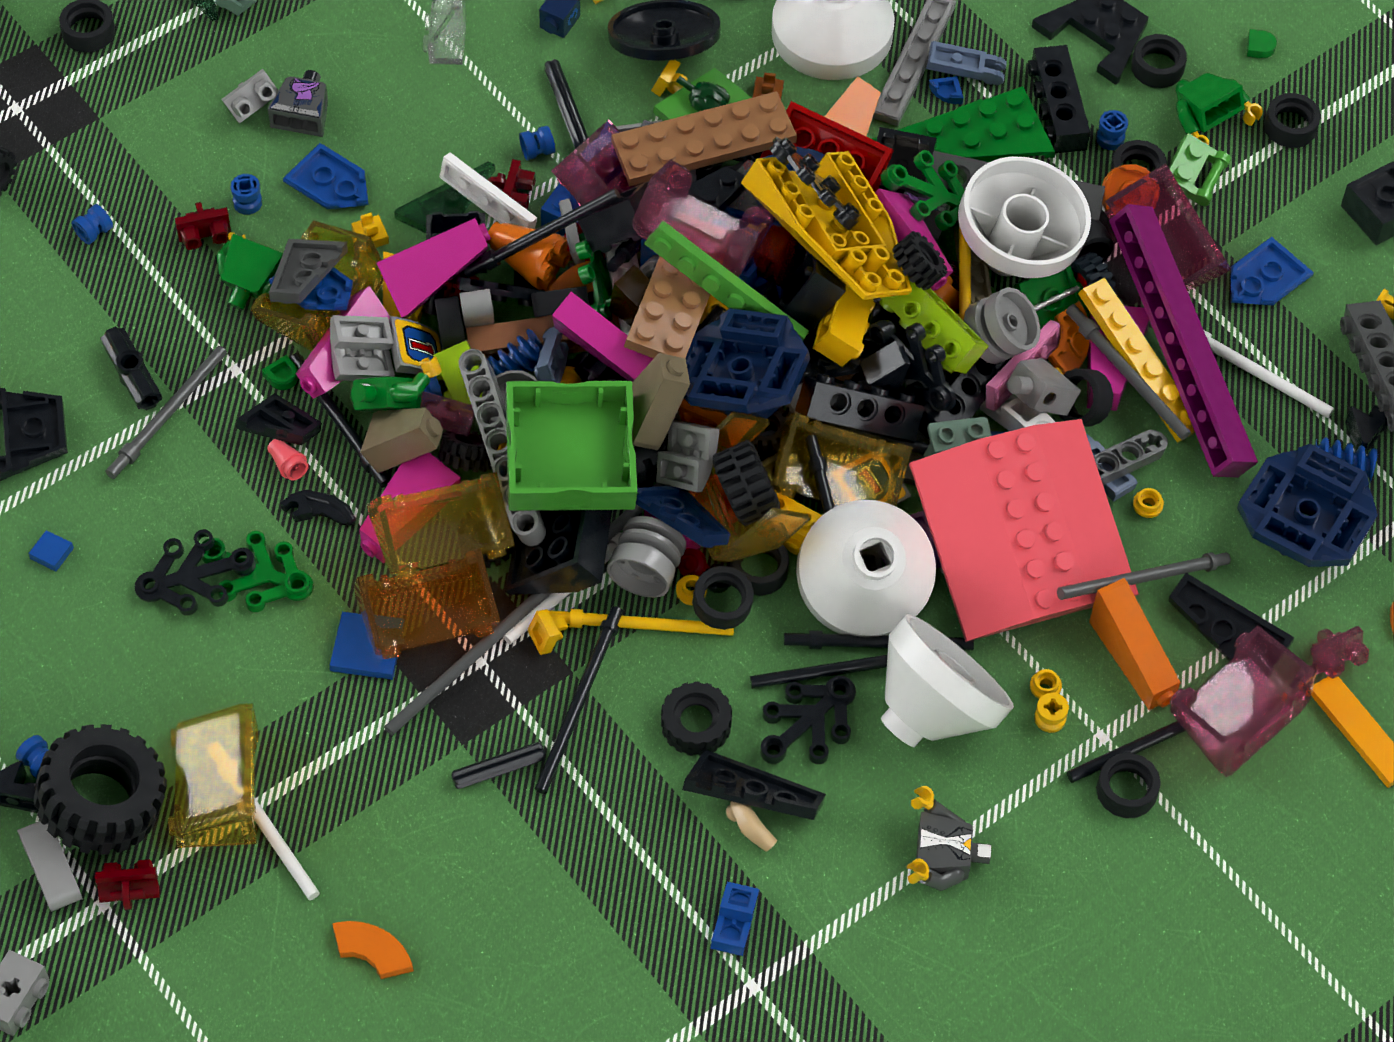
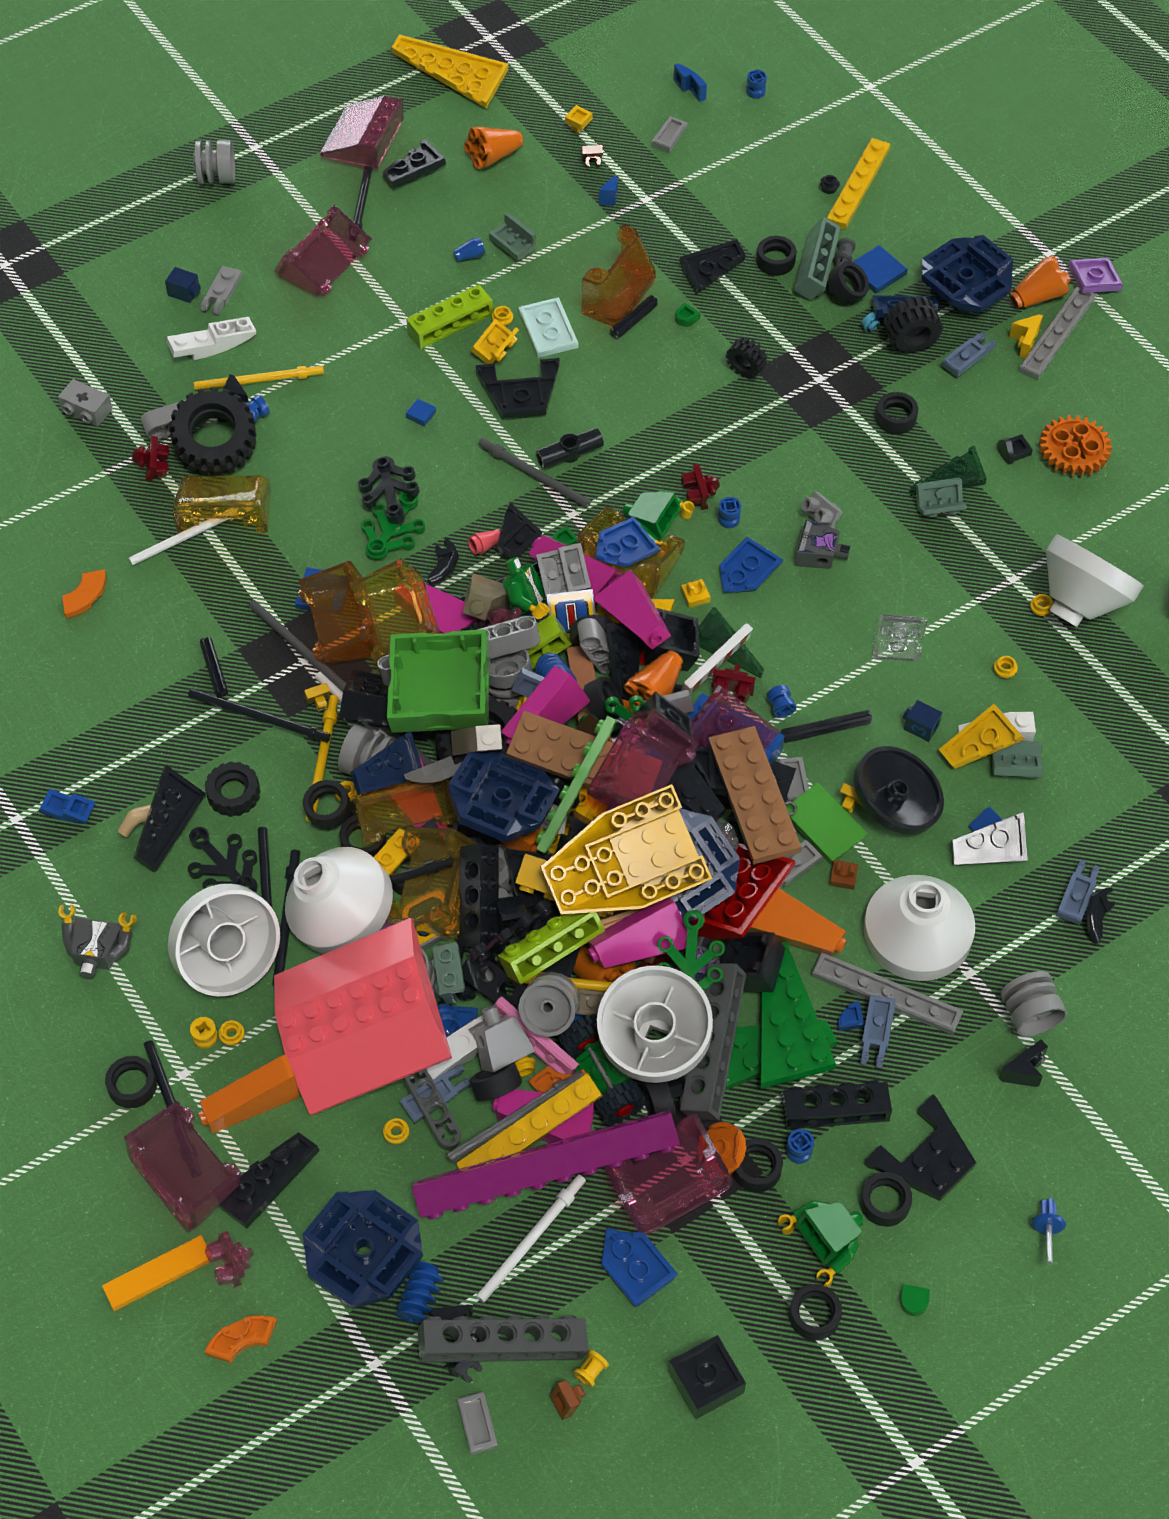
camera: 95 degrees right, 0 degrees up
(92, 224) = (701, 421): blue wheel -> none
(303, 267) = (634, 530): dark grey wing -> none
(493, 258) = (644, 654): black bar -> none
(705, 94) = (827, 819): dark green piece -> none
(745, 482) = (405, 788): black tyre -> none
(826, 188) = (658, 831): black plant -> none
(919, 260) = (599, 934): black tyre -> none
(1188, 164) = (756, 1205): bright green plate -> none
(1207, 562) = (330, 1168): dark grey bar -> none

